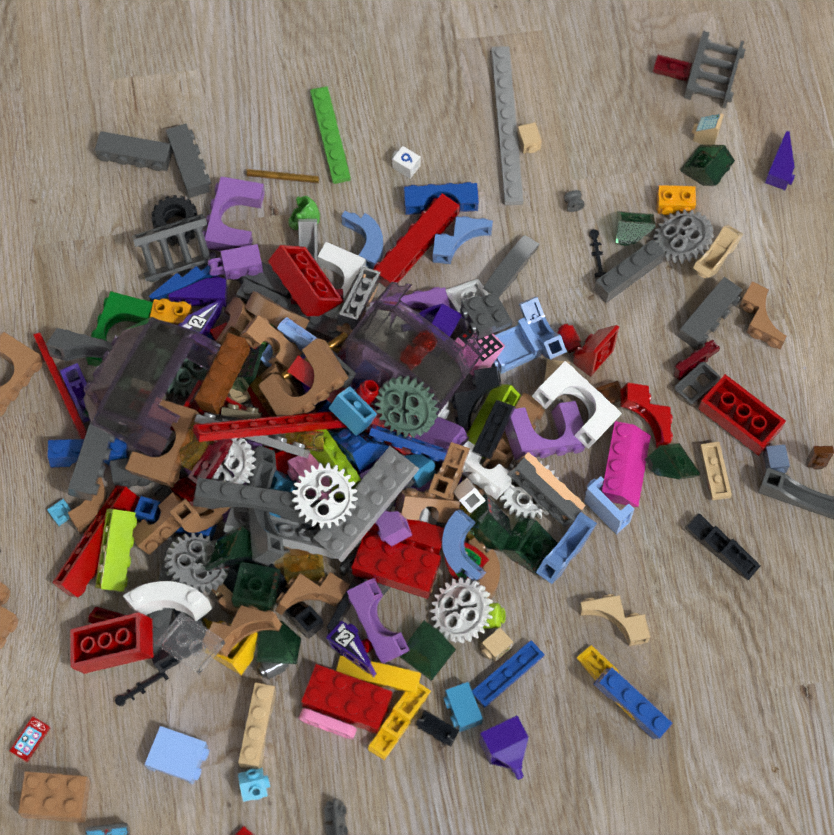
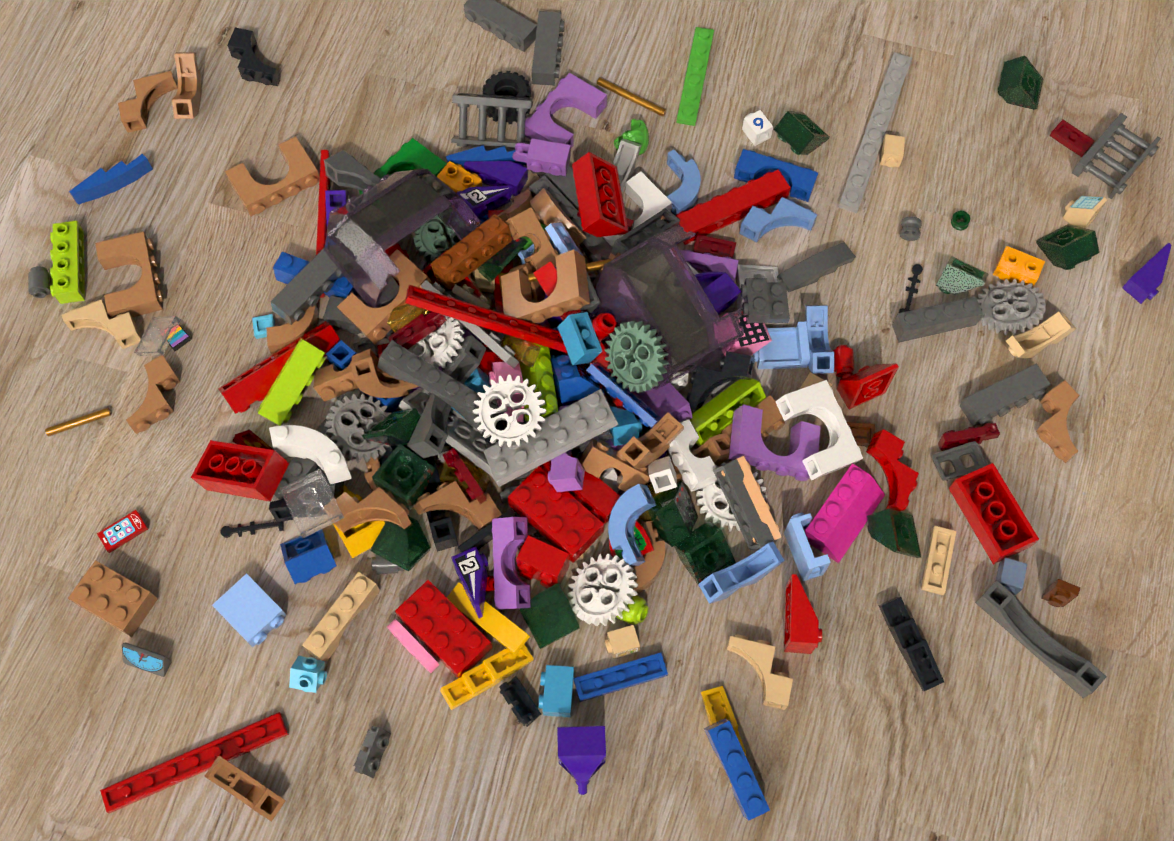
camera: 25 degrees right, 0 degrees up
(203, 690) = (308, 556): none -> blue slope
(305, 564) = (463, 474): none -> dark red hinge
(403, 609) = (542, 562): none -> red brick
(413, 356) = (681, 298): clear red hinge -> none
(419, 282) = (714, 246): none -> dark red plate
(445, 152) = (800, 133): none -> clear green slope
(493, 429) = (718, 418): black tile -> none
(609, 35) = (1020, 83): none -> clear green slope
(609, 172) = (960, 225): none -> dark green bush
(629, 565) = (801, 622): none -> red slope

